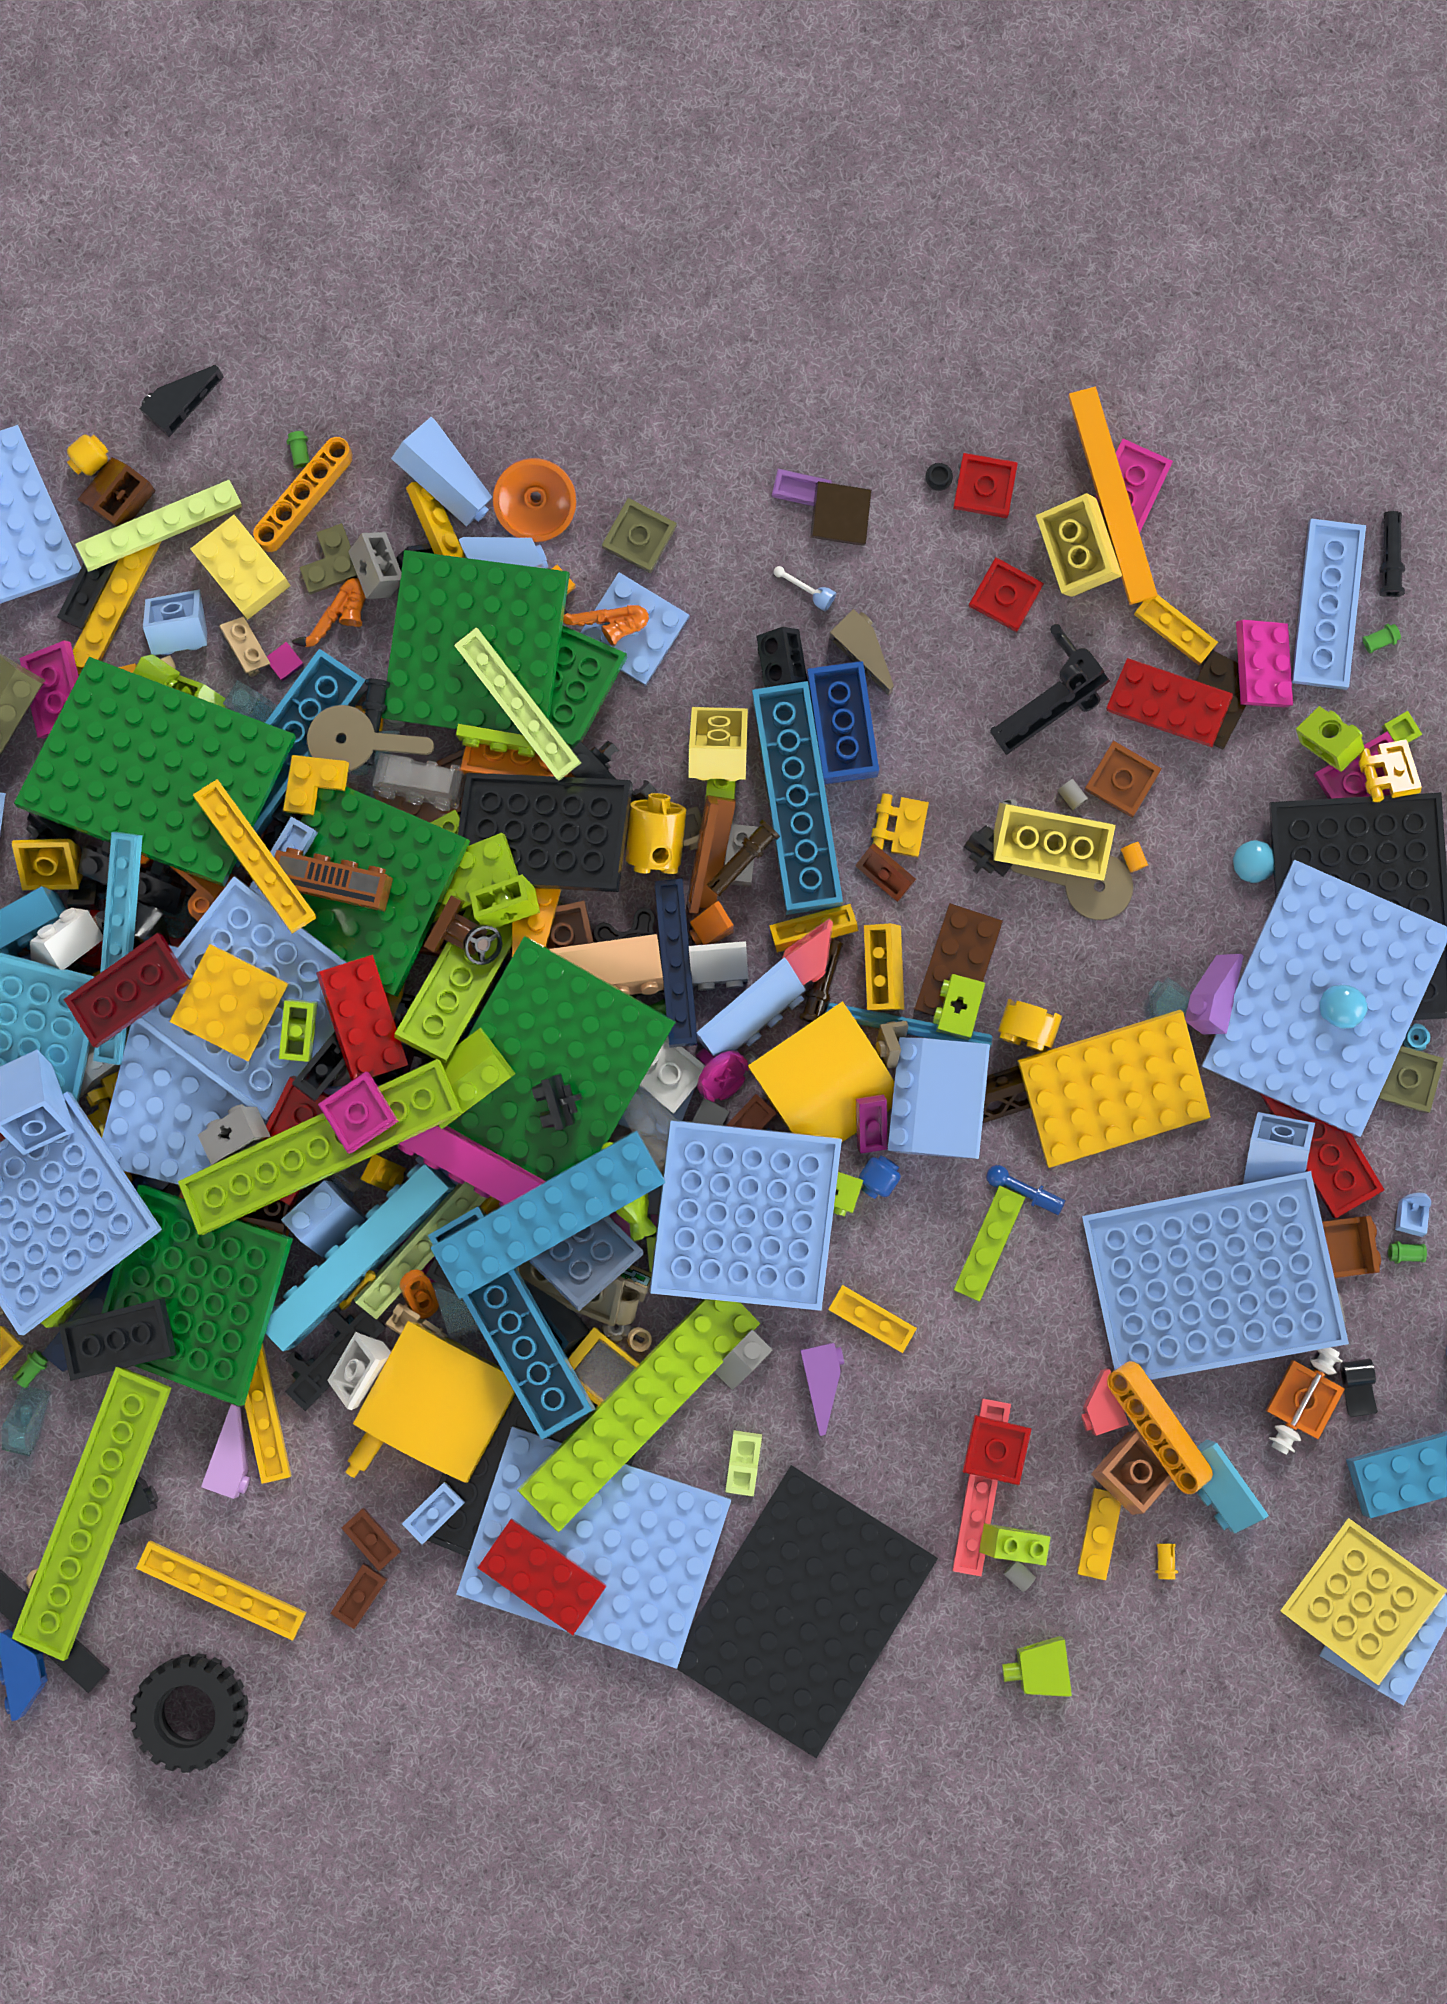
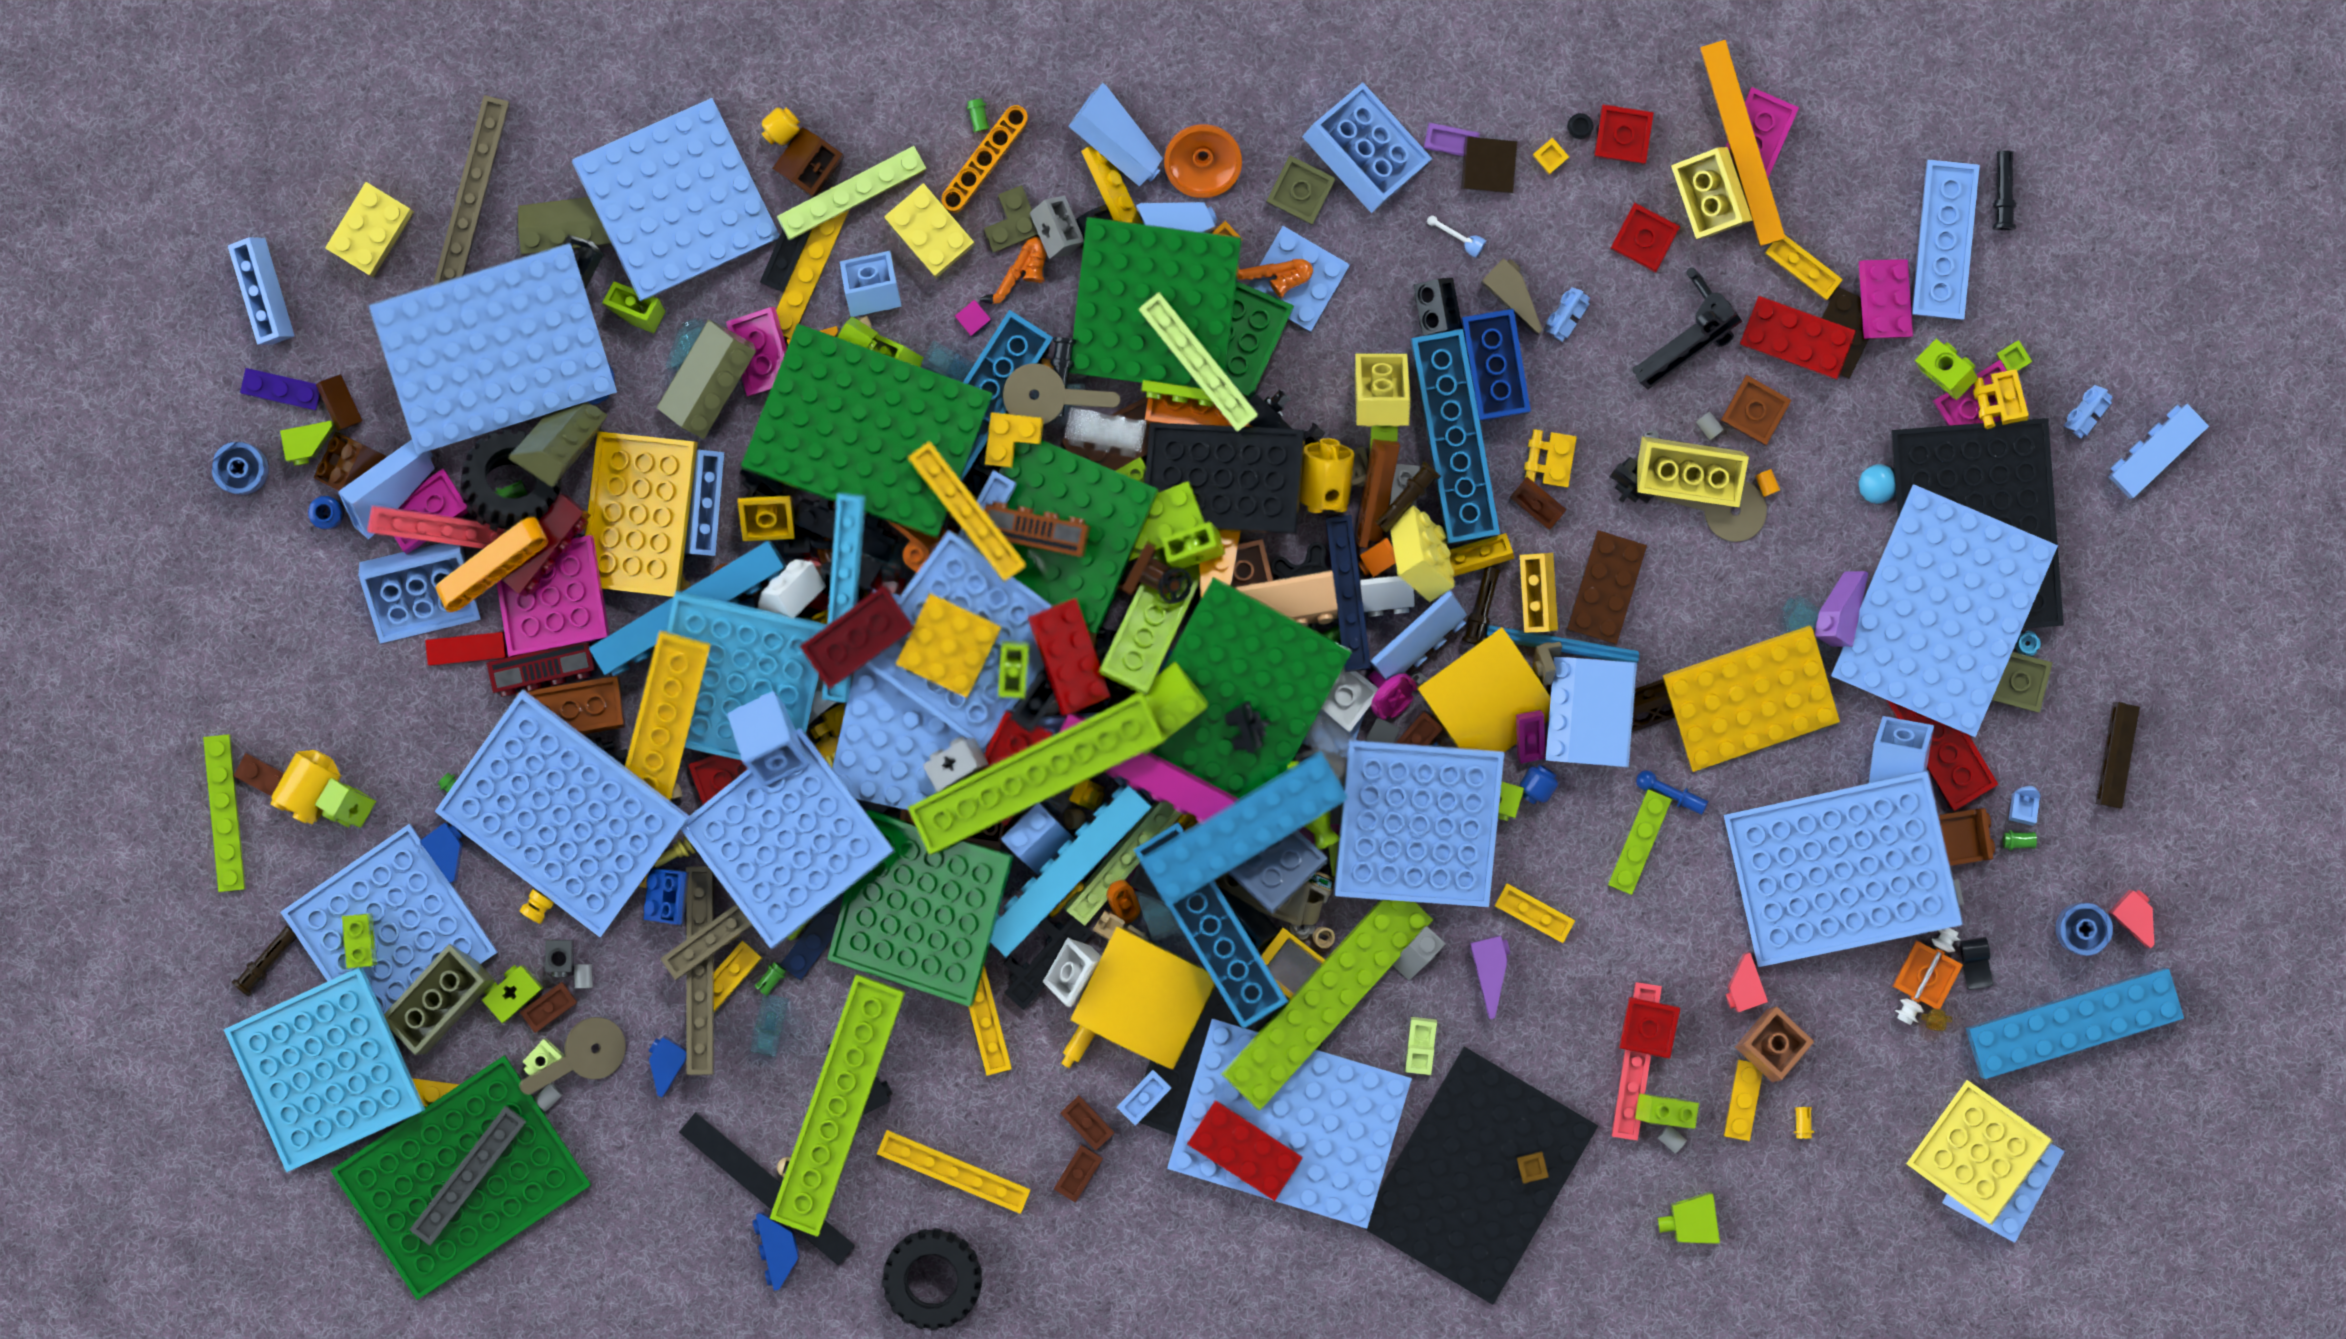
camera: 10 degrees left, 5 degrees up
(117, 1339) = (854, 950): black plate -> none
(177, 400) = (860, 72): black slope -> none
(229, 1461) = (956, 1059): lavender slope -> none
(245, 646) = (936, 305): tan hinge -> none
(358, 1112) = (1071, 743): dark pink tile -> none
(369, 1199) = (1074, 818): none -> tan hinge
(710, 492) = (1366, 147): none -> light blue slope
(757, 920) = (1422, 554): none -> light yellow brick
(811, 953) = (1472, 582): coral slope -> none
(863, 1604) = (1532, 1167): none -> pearl gold plate
(906, 506) = (1550, 156): none -> yellow plate
(913, 679) = (1573, 303): none -> light blue hinge
(970, 994) = (1618, 615): lime brick -> none
(1029, 1024) = (1672, 642): yellow brick -> none
(1159, 1427) = (1795, 1003): light orange beam -> none
(1228, 1492) = (1852, 1055): medium azure slope -> none
(1315, 1450) = (1936, 1020): none -> clear yellow plate
(1343, 1006) = (1958, 619): medium azure hair -> none
(1381, 638) = (1995, 271): bright green pin -> none

